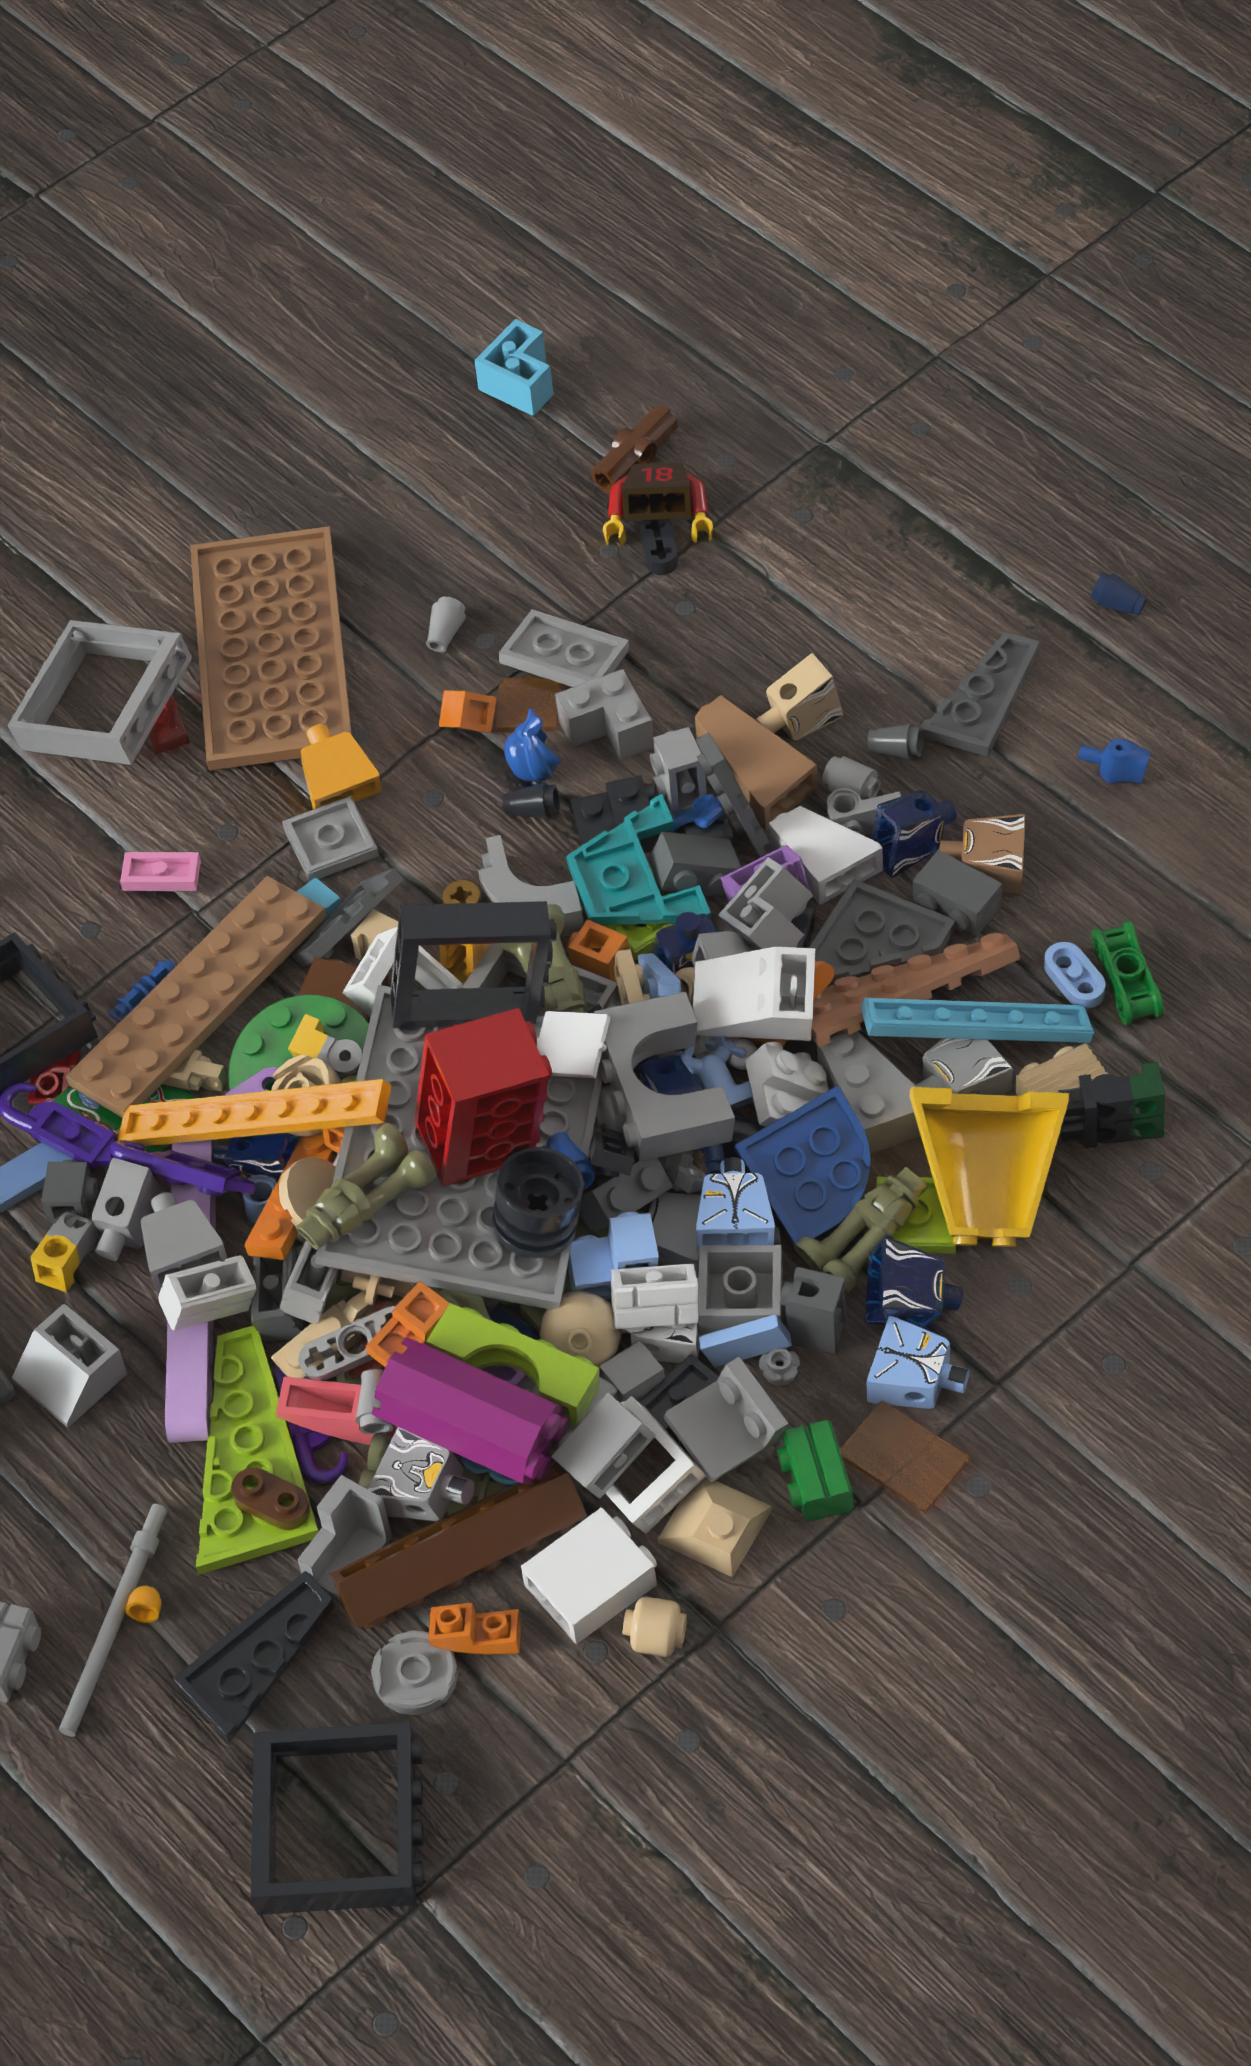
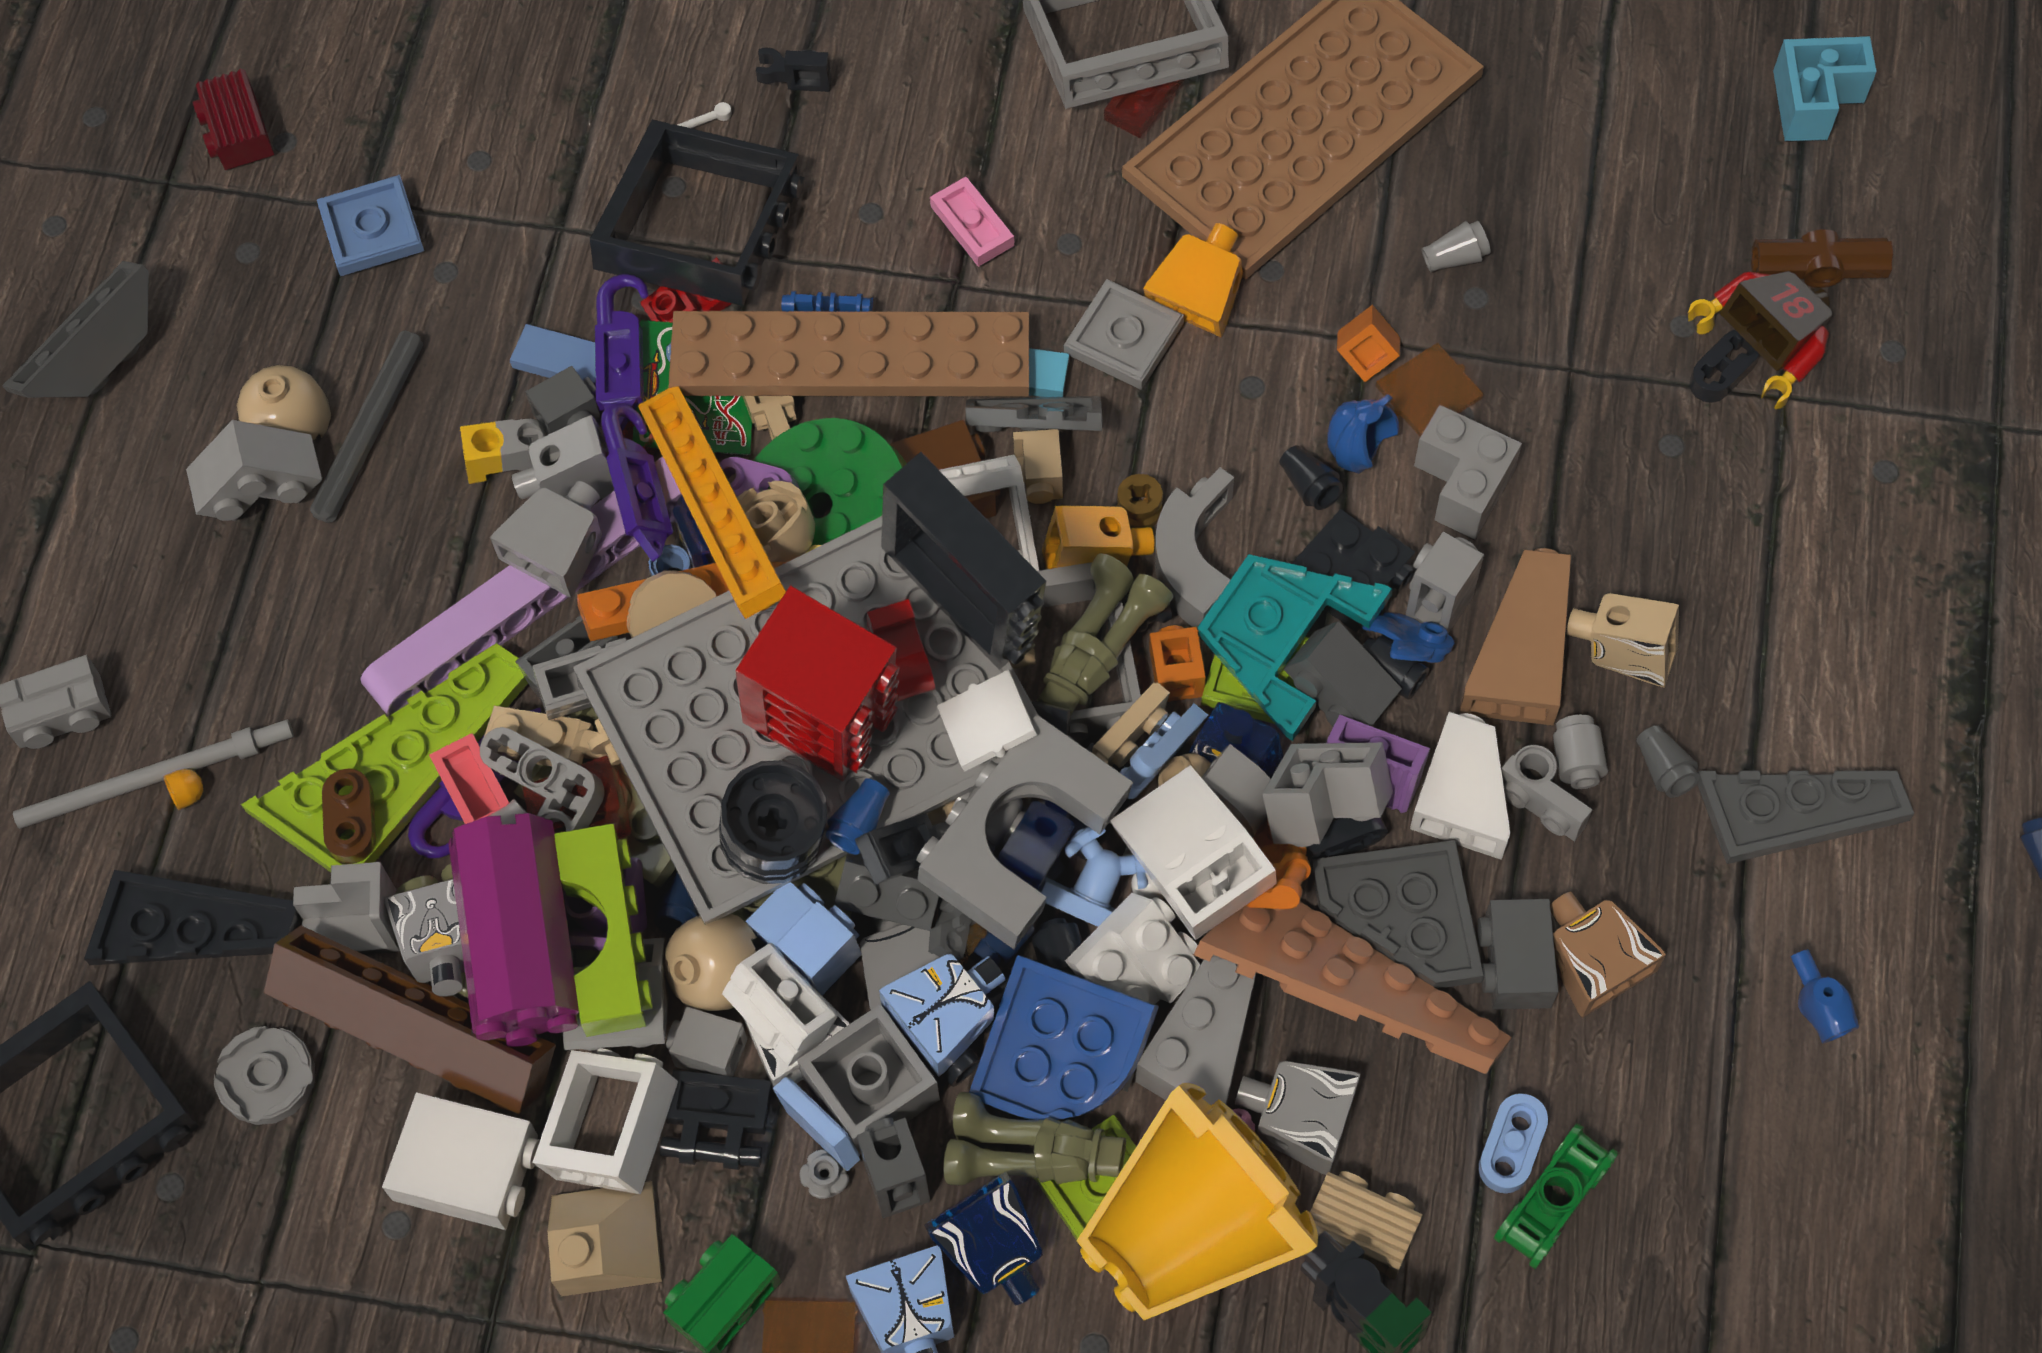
camera: 50 degrees right, 10 degrees up
(68, 1366) = (379, 543): light grey slope -> none
(207, 1292) = (505, 601): white brick -> none
(310, 1040) = (833, 499): leg -> none
(347, 1207) = (633, 655): olive piece -> none
(412, 1318) = (576, 804): orange slope -> none
(464, 1631) = (337, 1098): orange slope -> none
(562, 650) = (1512, 374): light grey plate -> none
(603, 1445) = (574, 1076): light grey brick -> none
(655, 1626) = (441, 1264): tan head -> none
(727, 1421) = (697, 1170): light grey bracket -> none
(731, 795) = (1435, 660): dark grey wing -> none
(910, 829) = (1558, 853): clear blue torso -> none
(976, 1020) = (1361, 1086): medium azure tile -> none

